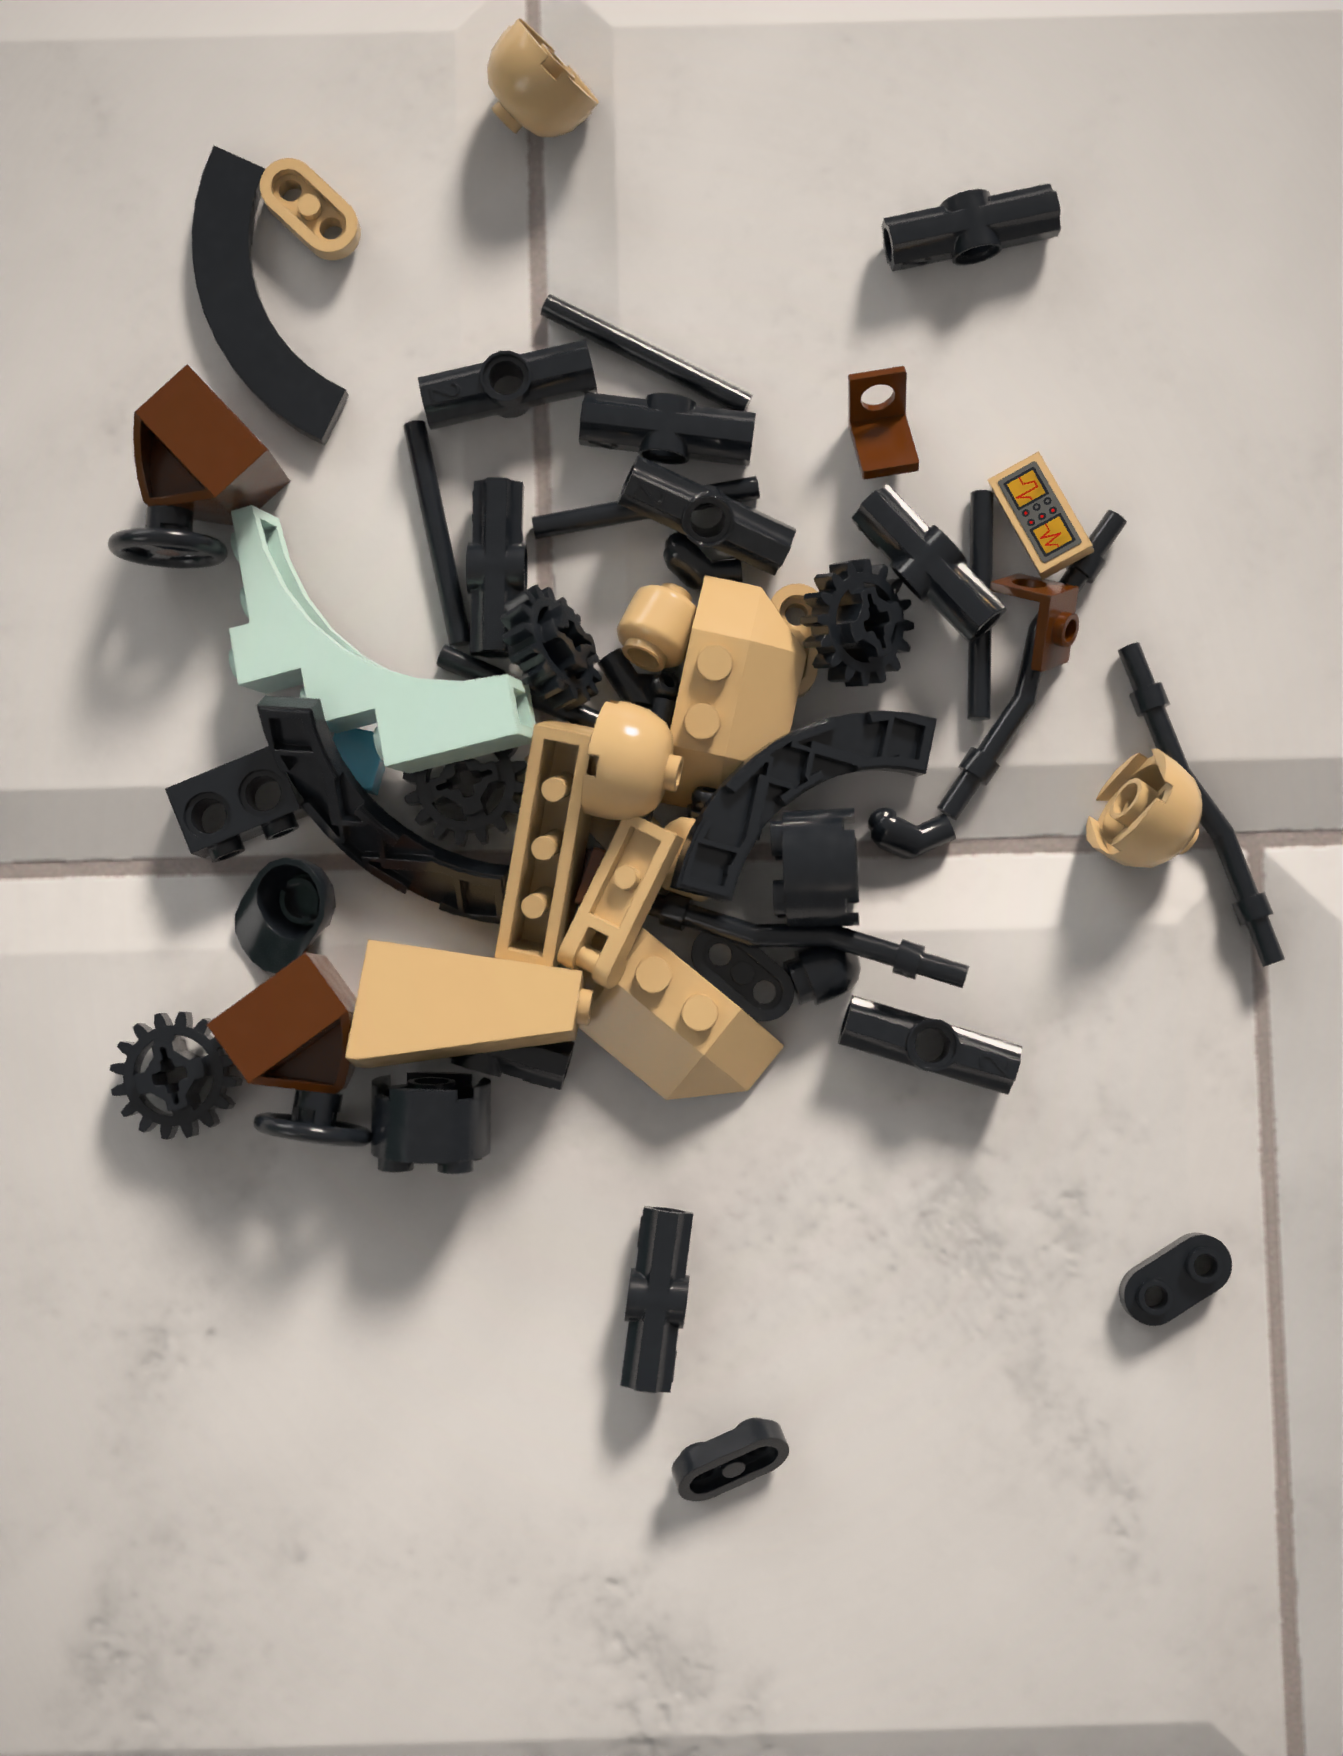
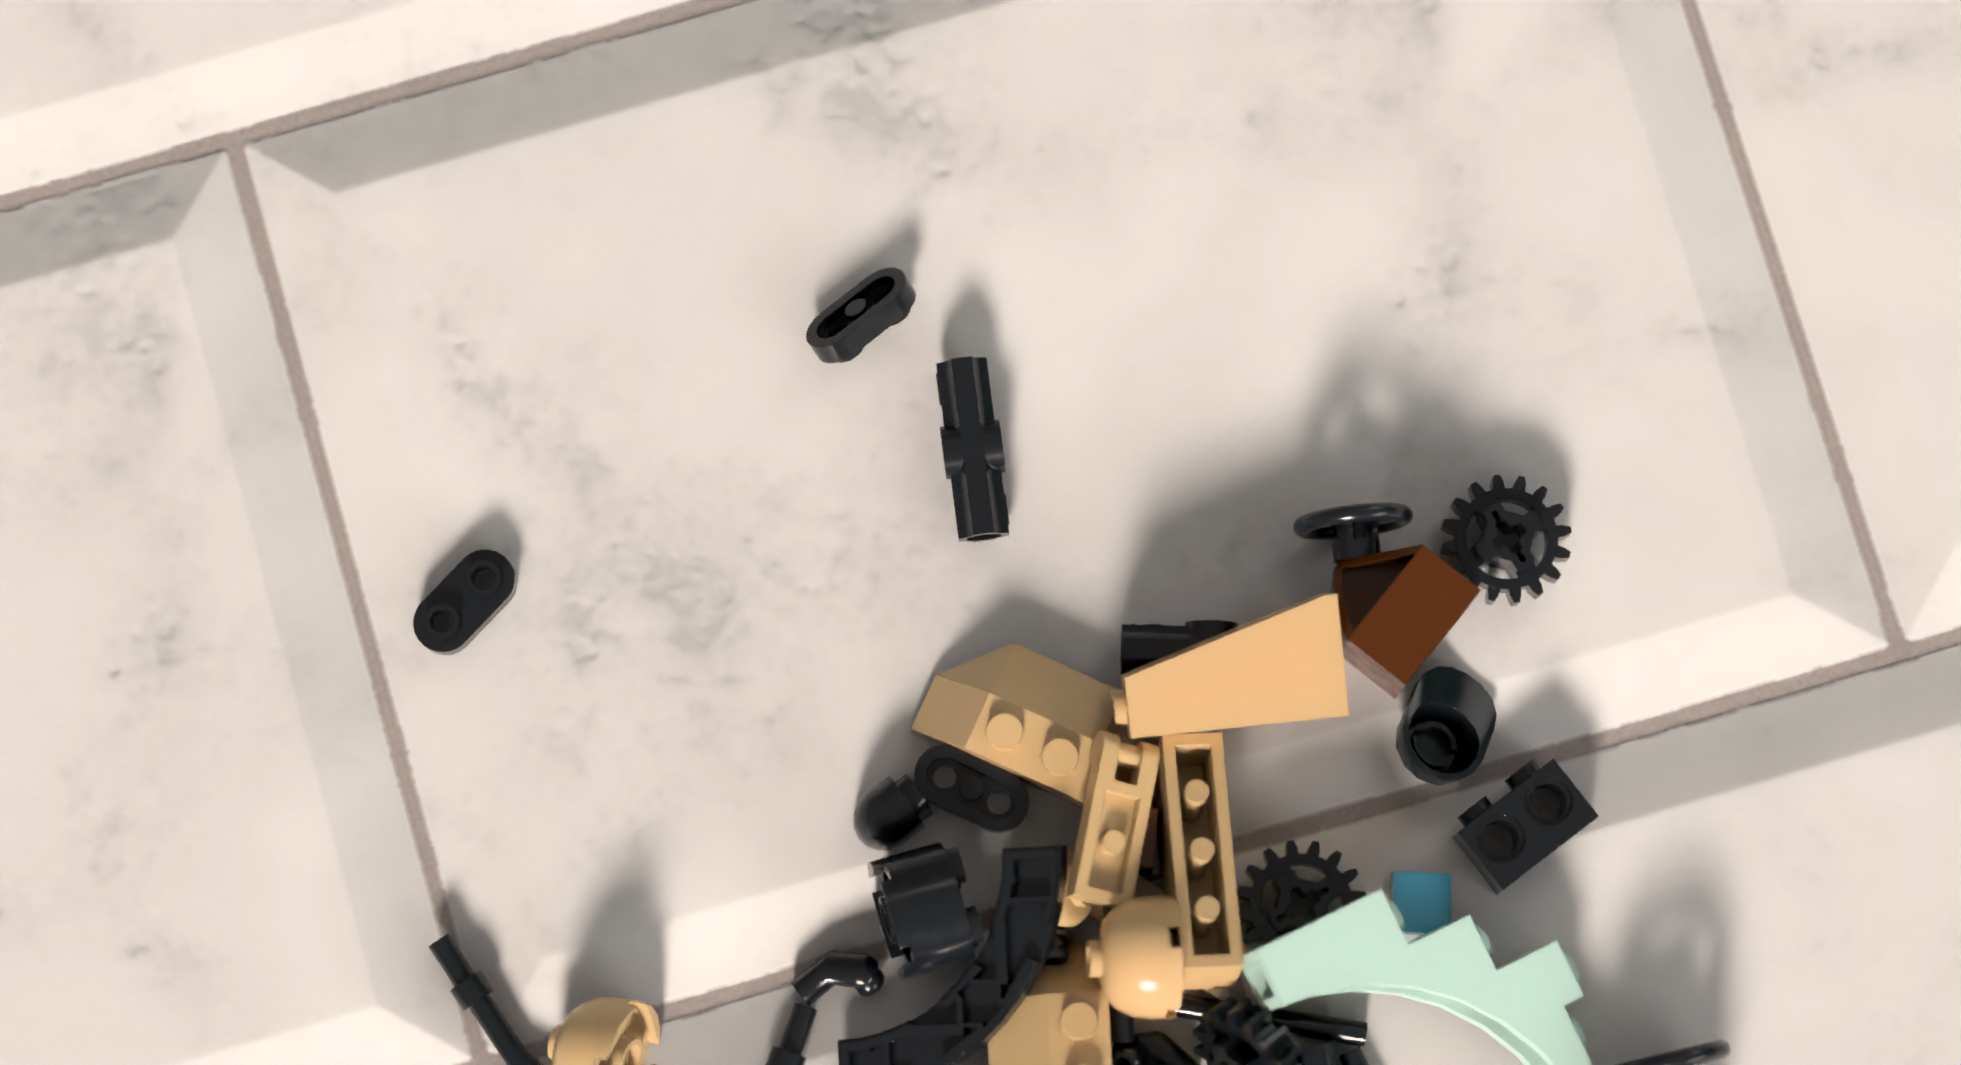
camera: 170 degrees right, 5 degrees down
(362, 828) = (1387, 828): black tile -> none
(430, 1121) = (1240, 559): black brick -> none
(906, 958) = (813, 841): black bar -> none
(965, 1053) = (726, 764): black piece -> none

